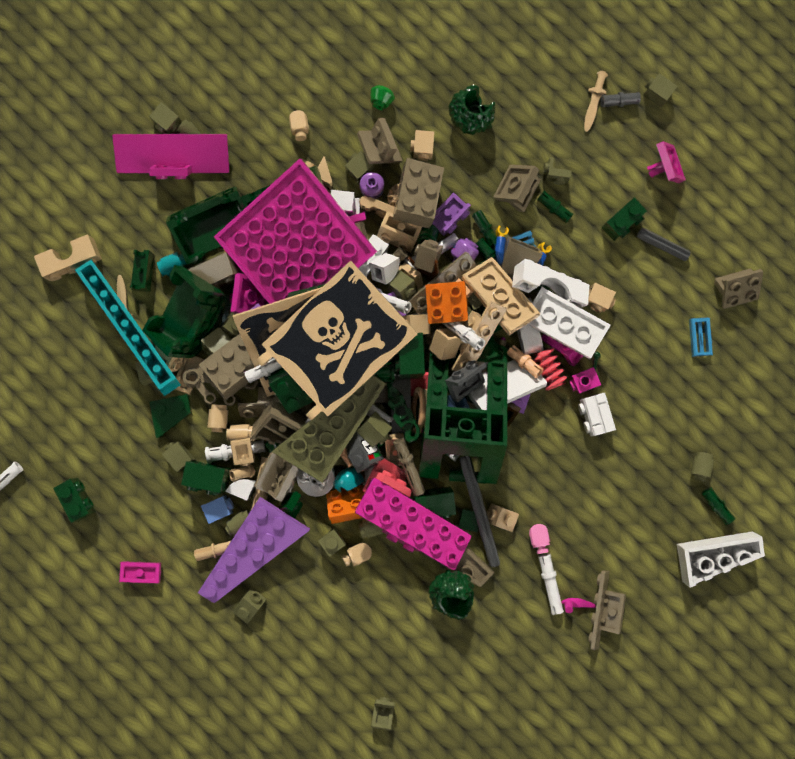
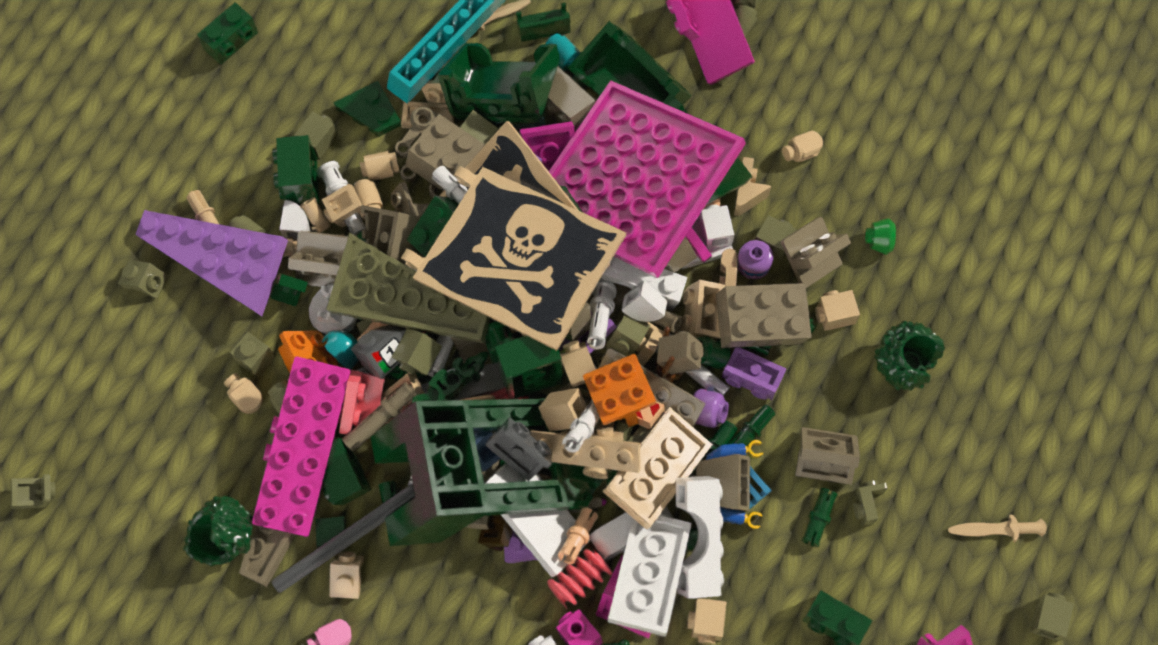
camera: 80 degrees right, 15 degrees down
(140, 572) = (155, 136): dark pink plate -> none
(218, 509) = (259, 201): medium blue brick -> none
(620, 99) = (1014, 564): dark grey pin -> none

